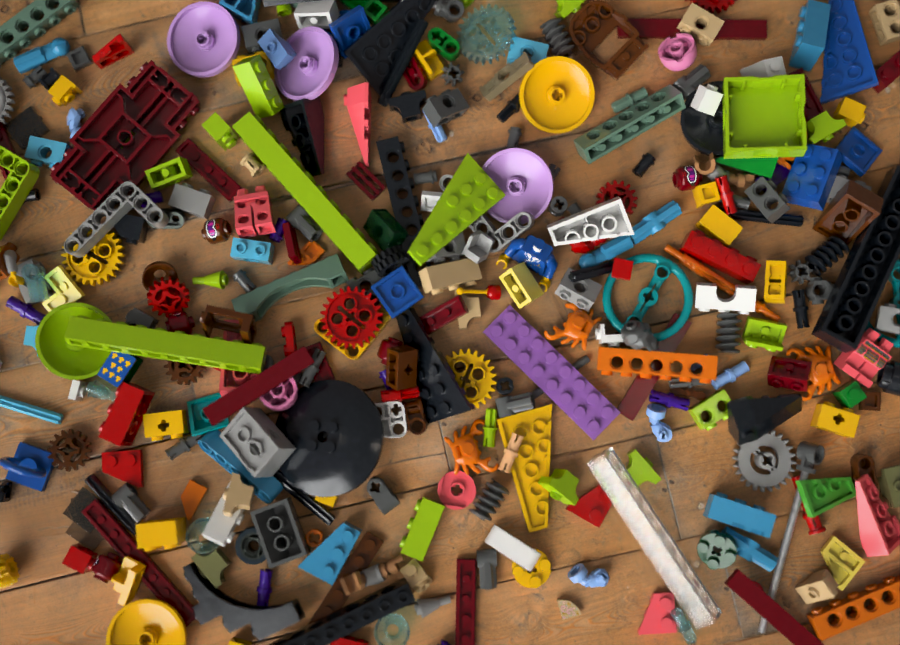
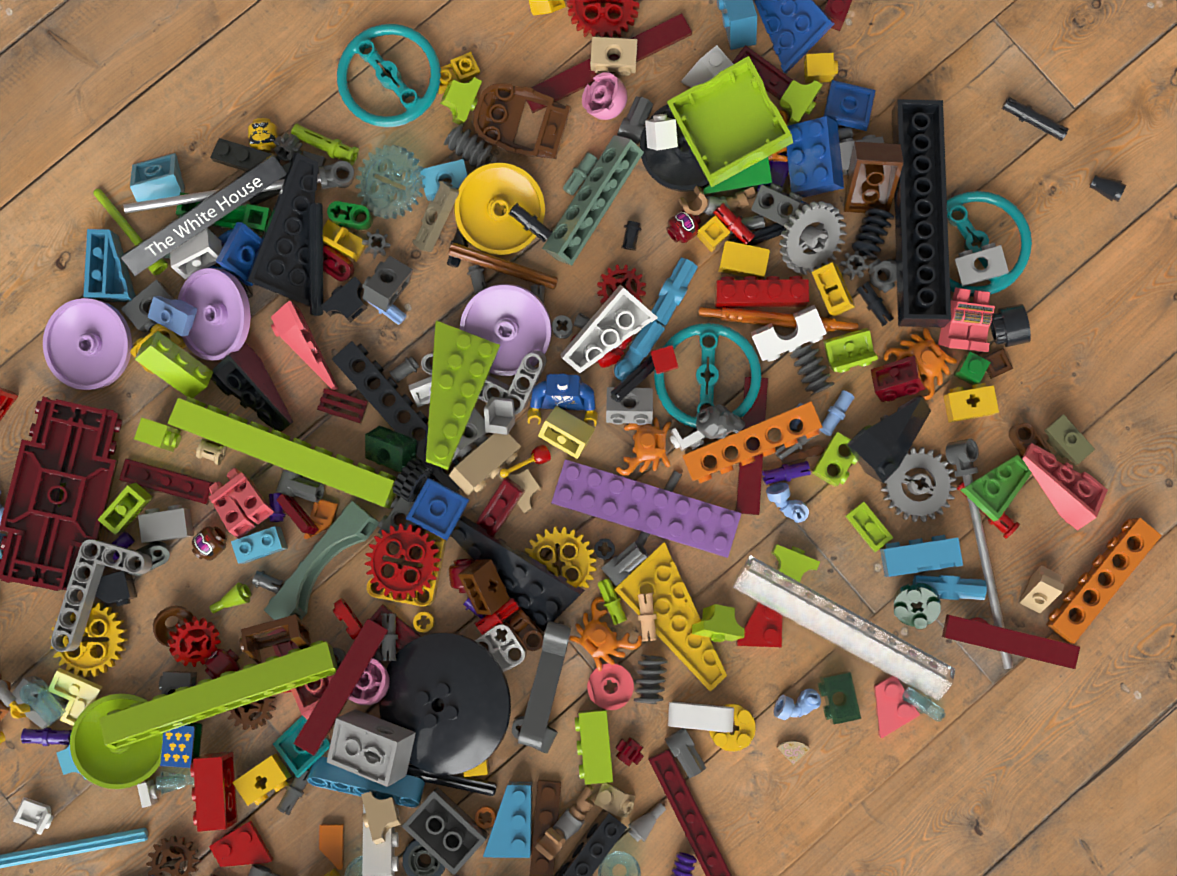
camera: 20 degrees left, 0 degrees up
(345, 376) = (428, 627): none -> yellow bush
(409, 463) = (545, 684): none -> dark grey beam
(446, 545) = (629, 751): none -> dark red gear
(537, 138) = (502, 266): none -> dark orange axle
(574, 116) = (530, 222): none -> black pin
(626, 599) = (849, 708): none -> clear green brick
(710, 472) = (869, 527): none -> lime plate
(785, 239) = (819, 239): none -> light grey gear
(841, 561) = (1053, 549): light yellow wing -> none

